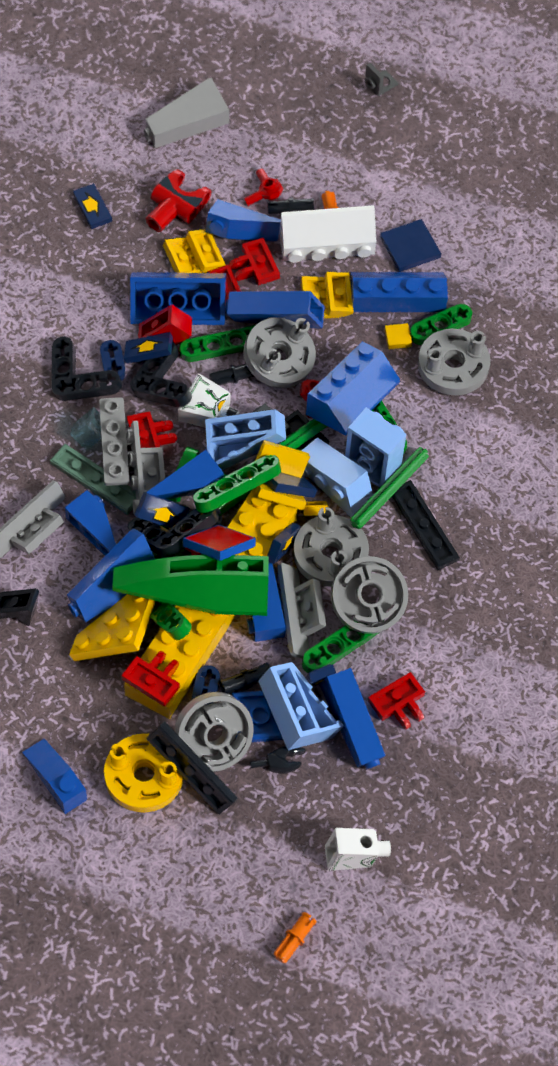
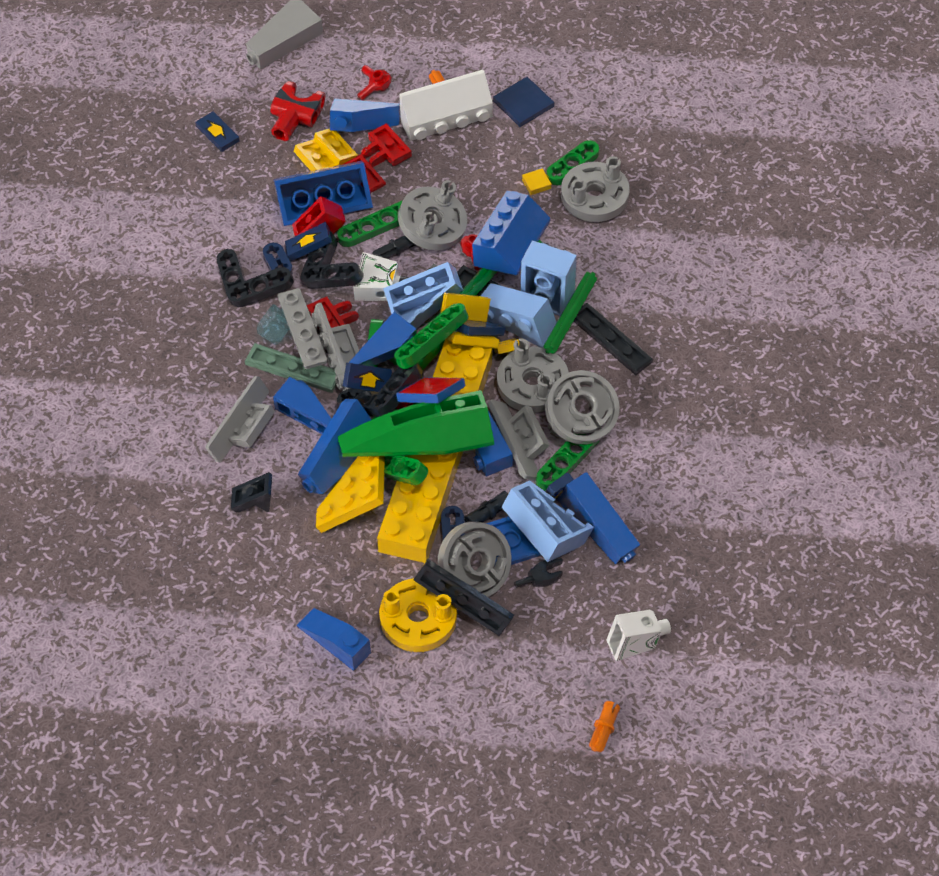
camera: 10 degrees left, 5 degrees down
(150, 680) = (404, 527): red hinge -> none
(262, 305) = (399, 181): blue slope -> none
(283, 542) = (488, 379): dark blue tile -> none
(289, 205) = (392, 94): black pin -> none
(332, 292) = (461, 161): yellow slope -> none
(397, 696) = (634, 492): red hinge -> none
(399, 291) = (526, 143): blue slope -> none

